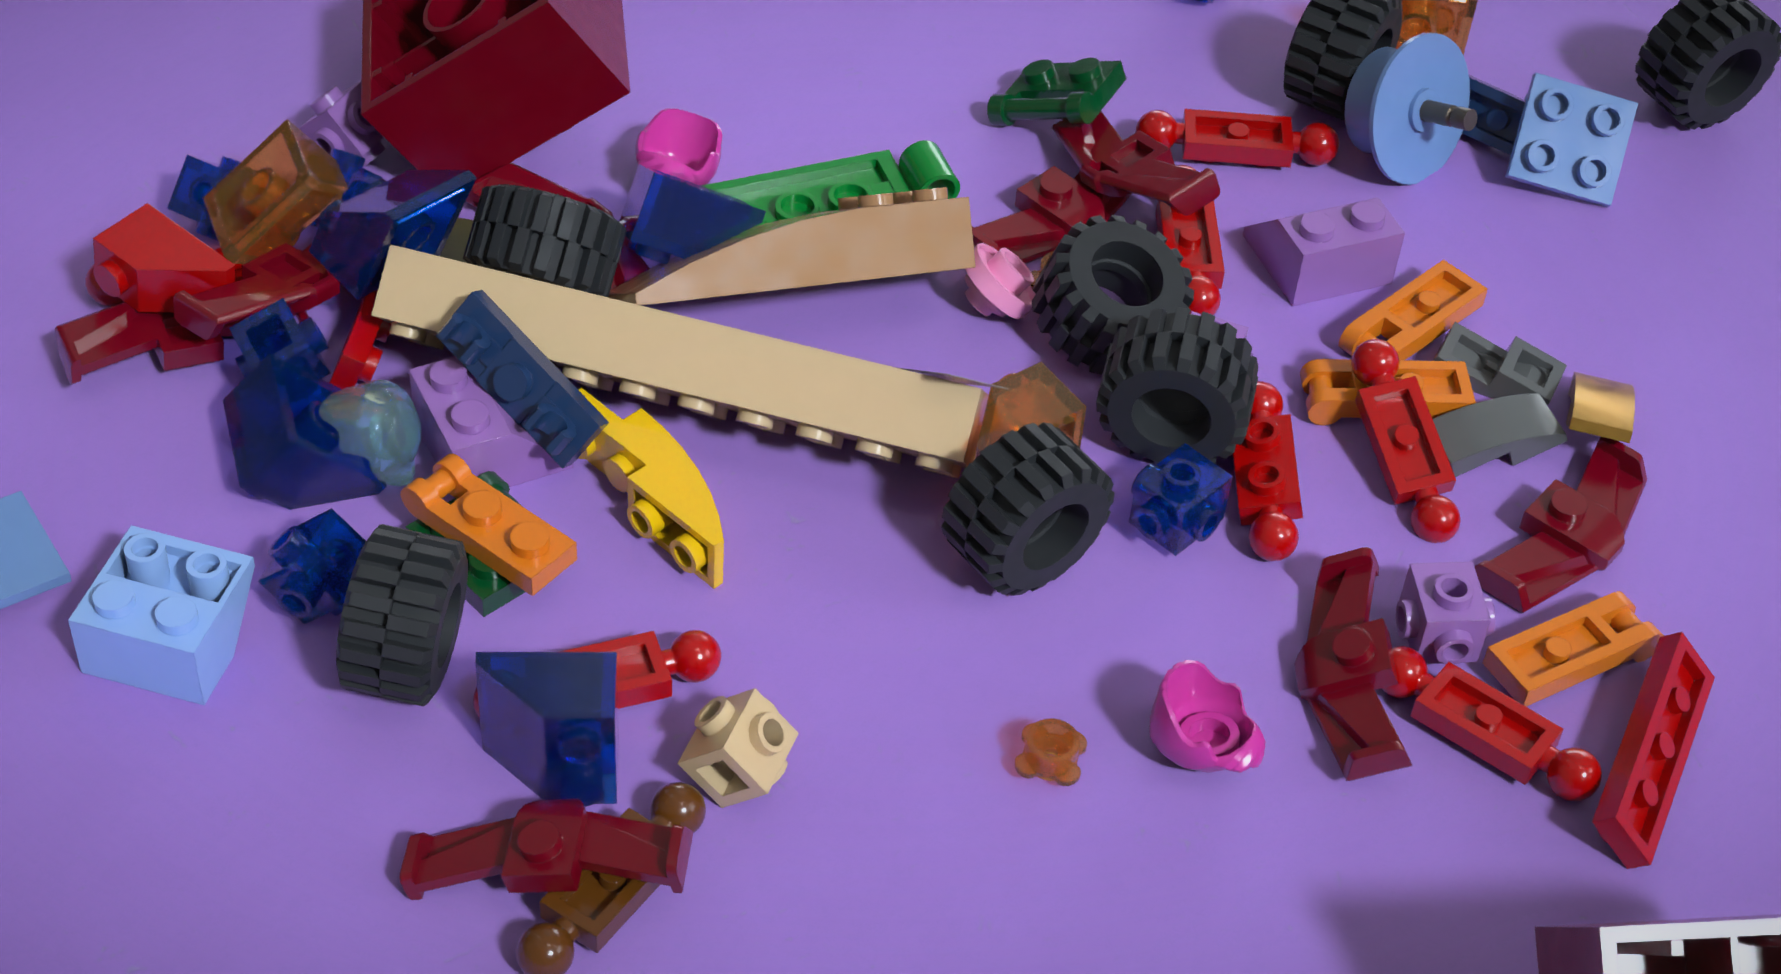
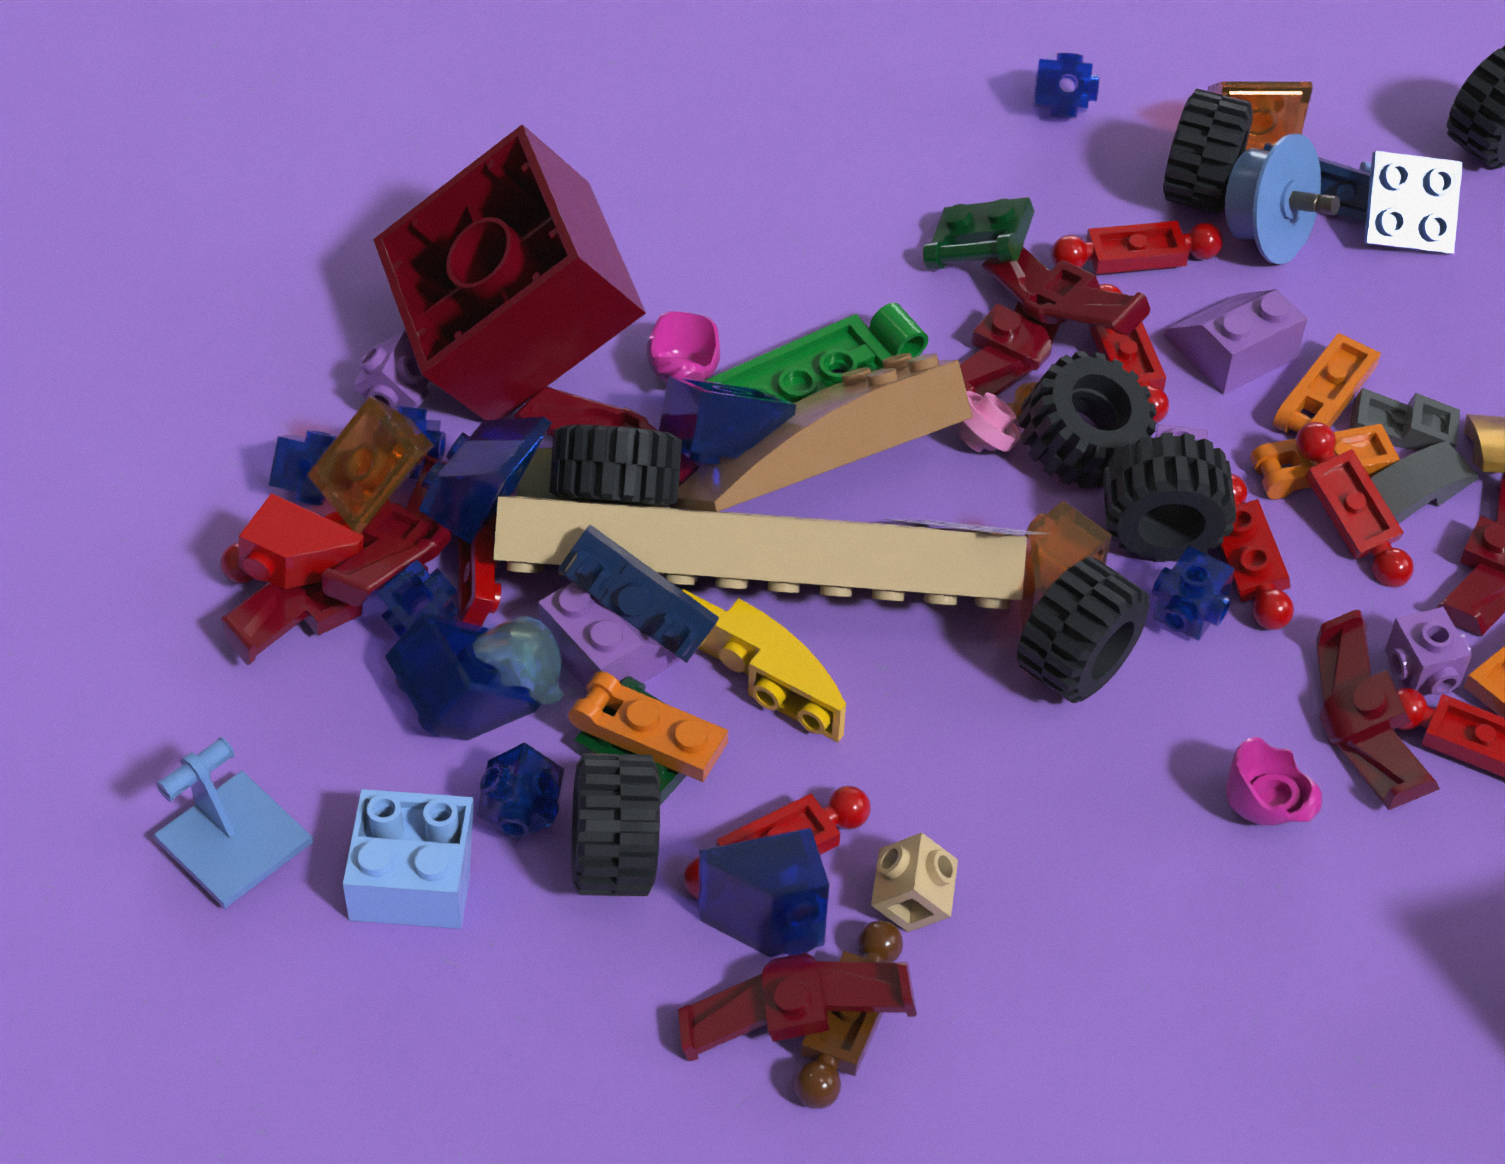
camera: 10 degrees left, 5 degrees up
(1053, 738) = (1154, 820): clear orange plate -> none

